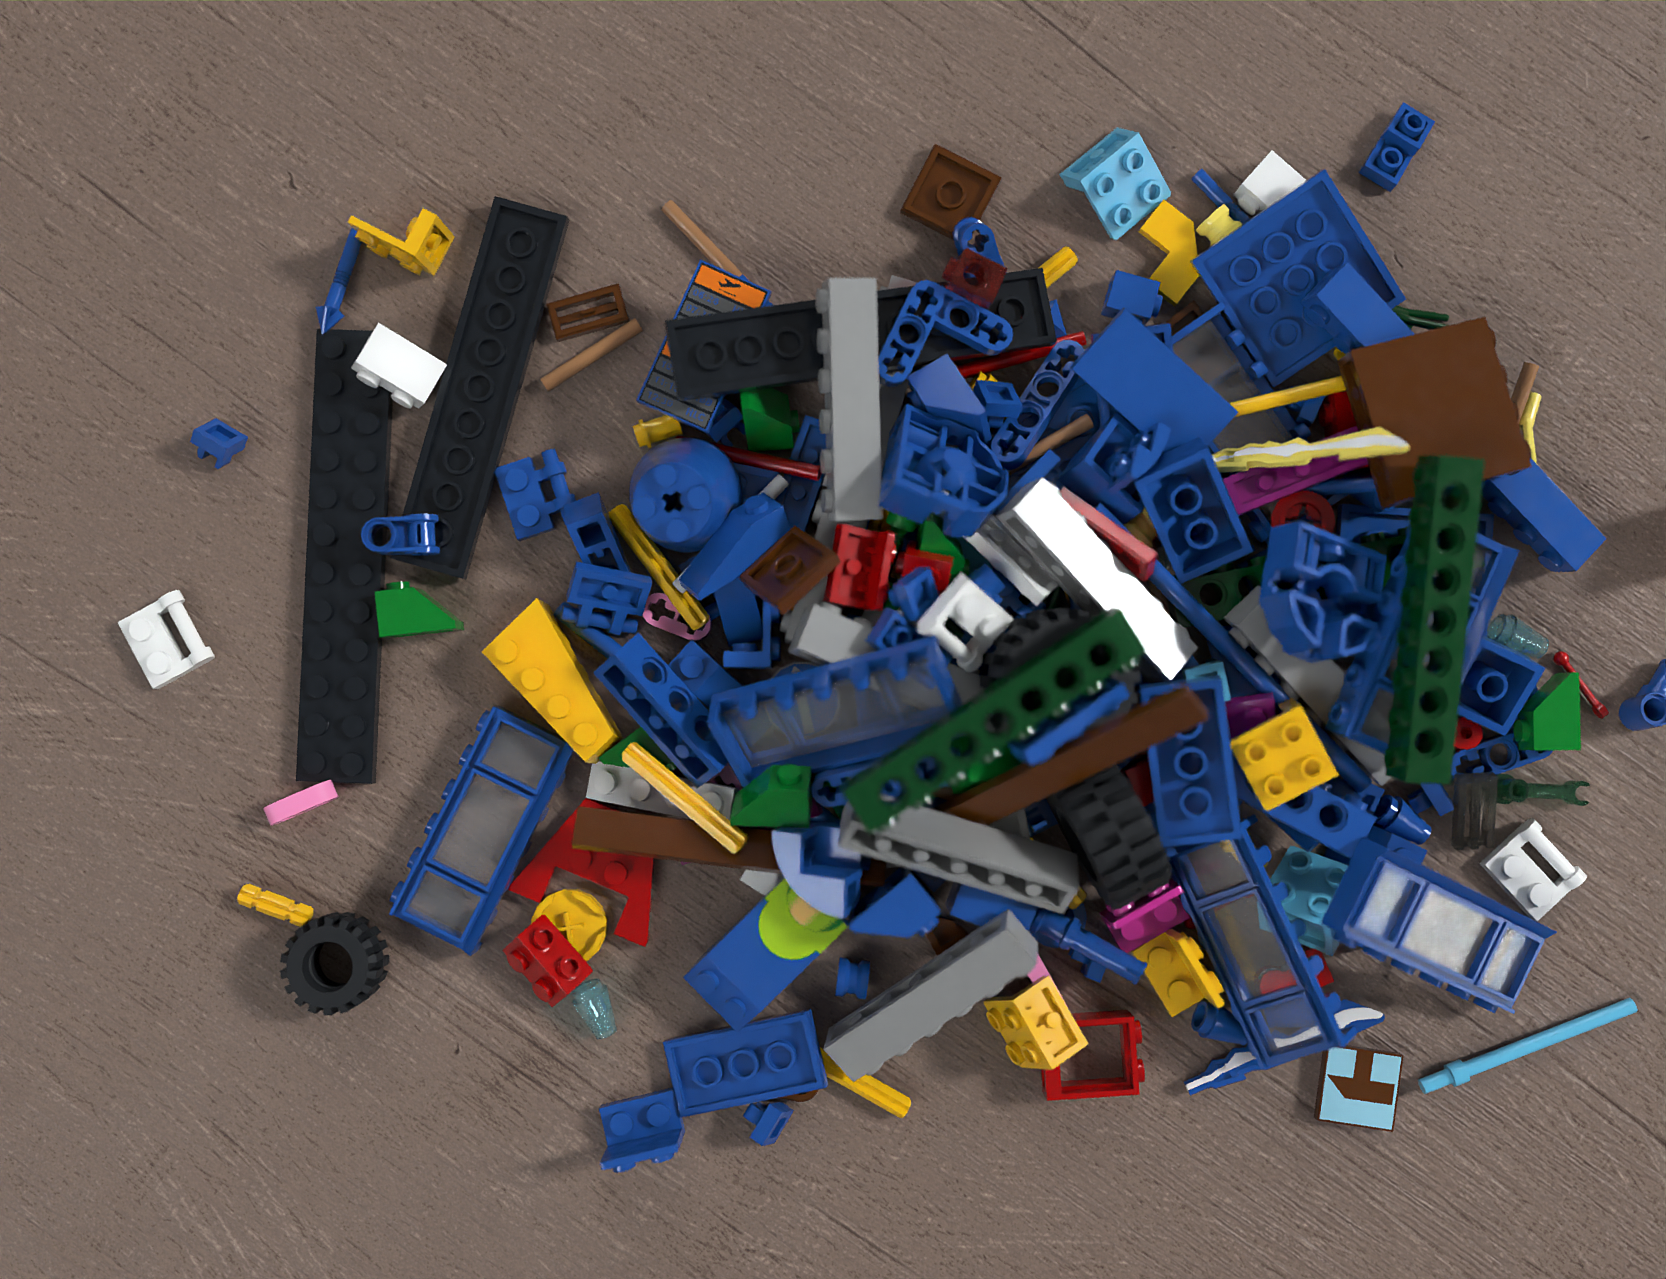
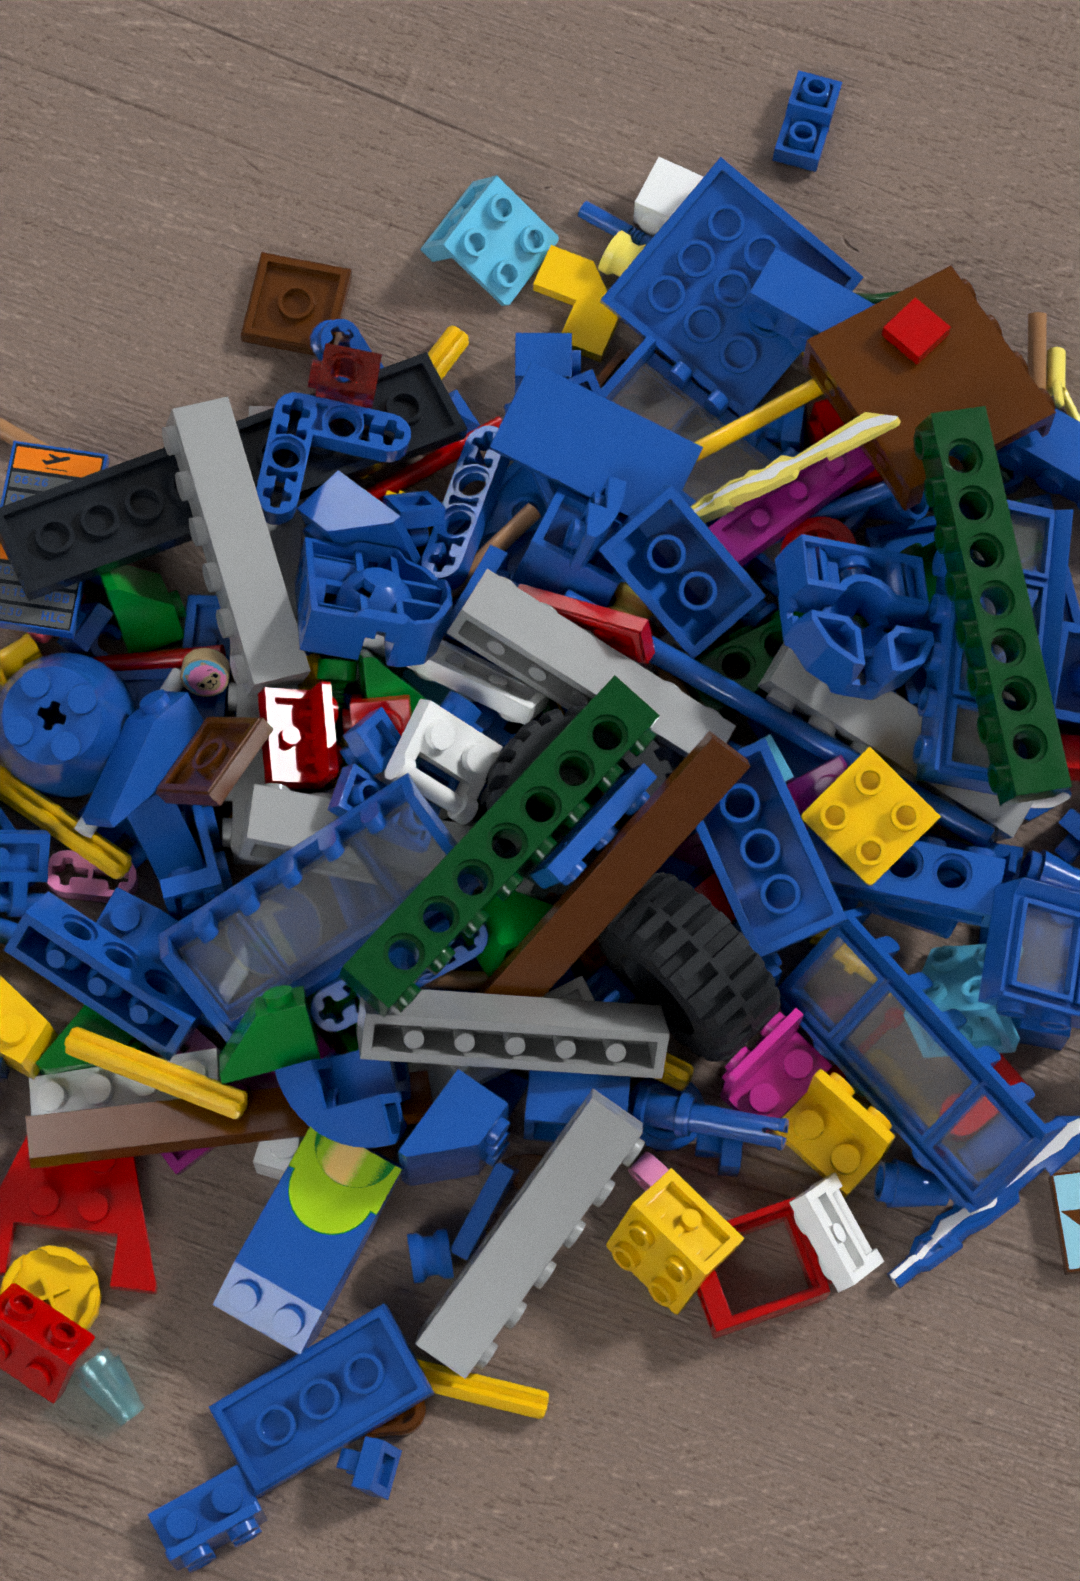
camera: 20 degrees left, 15 degrees down
(802, 486) = (205, 672): none -> tile
(900, 960) = (484, 1210): none -> blue tile
(1155, 1052) = (834, 1233): none -> white plate
(1441, 368) = (916, 331): none -> red tile

